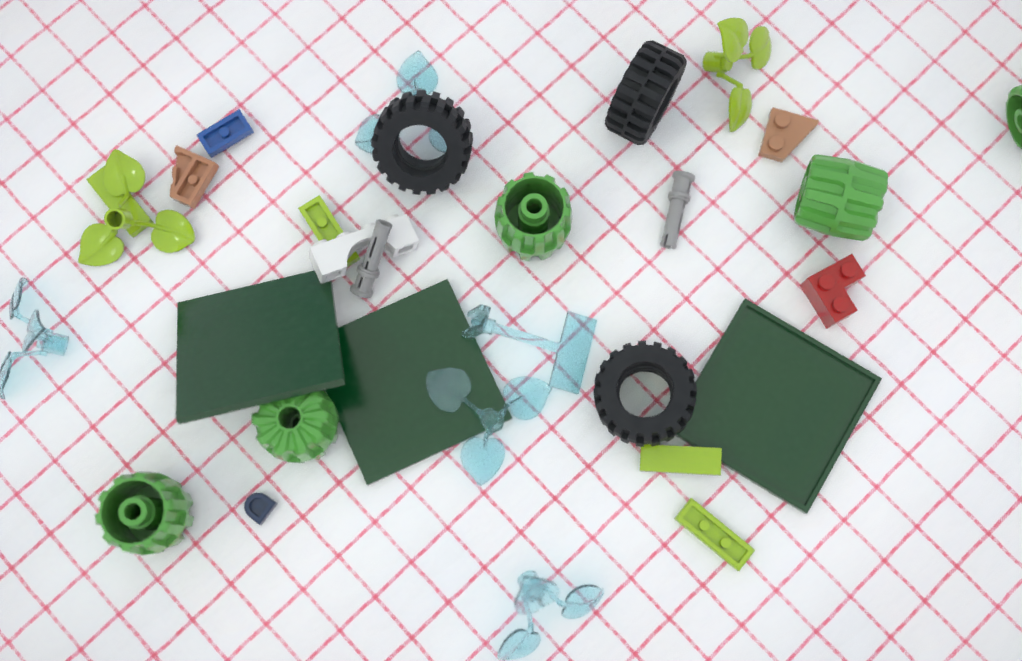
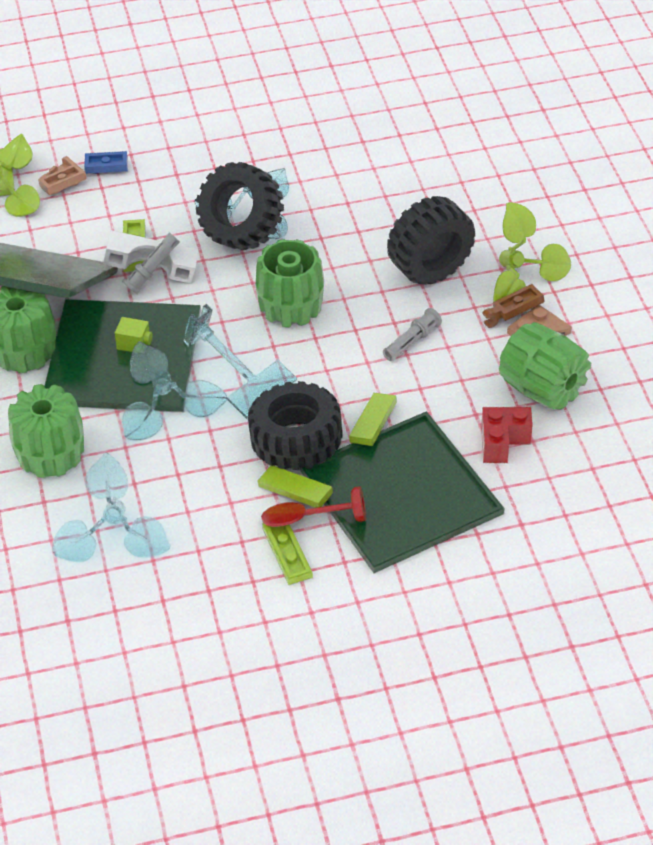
camera: 30 degrees right, 30 degrees down
(392, 535) = (46, 431): none -> bright green wheel
(412, 361) = (131, 332): none -> lime brick
(692, 497) = (291, 512): none -> red piece
(703, 337) = (372, 419): none -> lime tile
(754, 122) = (513, 305): none -> dark orange plate

